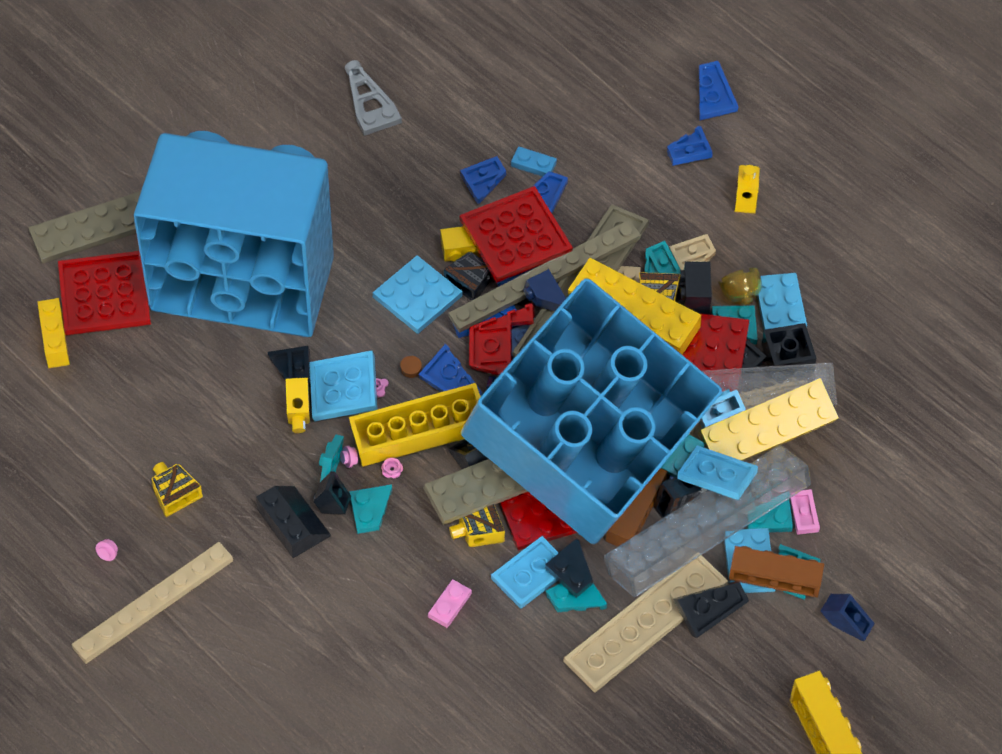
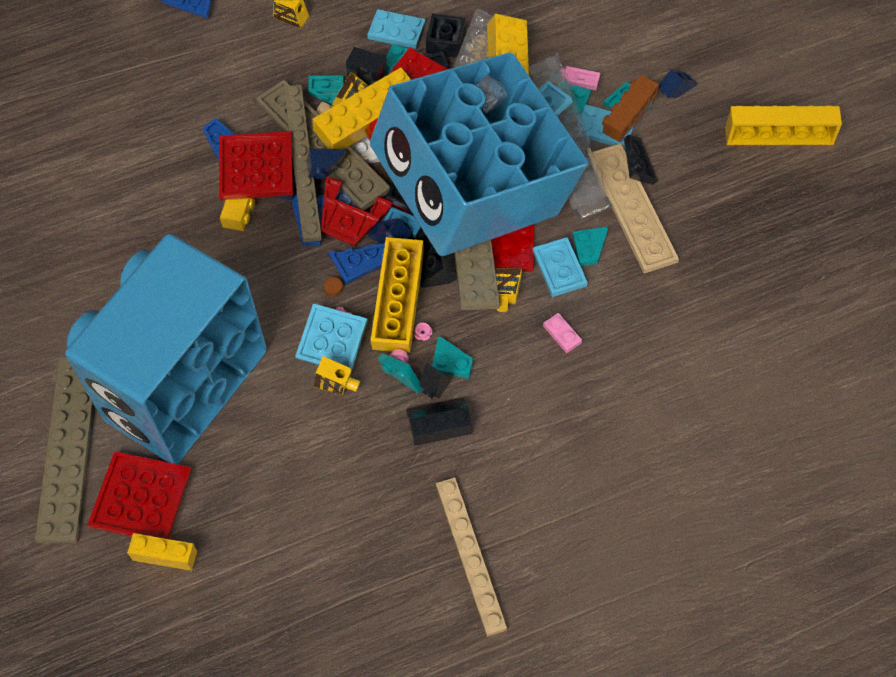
camera: 65 degrees left, 5 degrees up
(107, 550) = (406, 576): bright pink plate -> none
(174, 488) = (368, 502): torso -> none
(292, 362) = (291, 371): black wing -> none
(376, 119) = (78, 234): light grey plate -> none
(417, 294) = (266, 259): medium azure plate -> none
(469, 275) = (271, 215): torso -> none
(483, 177) = (181, 175): blue wing -> none
(533, 161) = (184, 137): dark azure plate -> none
(571, 569) = (572, 236): black wing -> none
(659, 392) = (493, 92): none -> clear slope
(690, 148) = (231, 32): blue wing -> none
(694, 250) = (328, 63): tan wing -> none
(741, 286) = (377, 40): clear yellow cylinder -> none

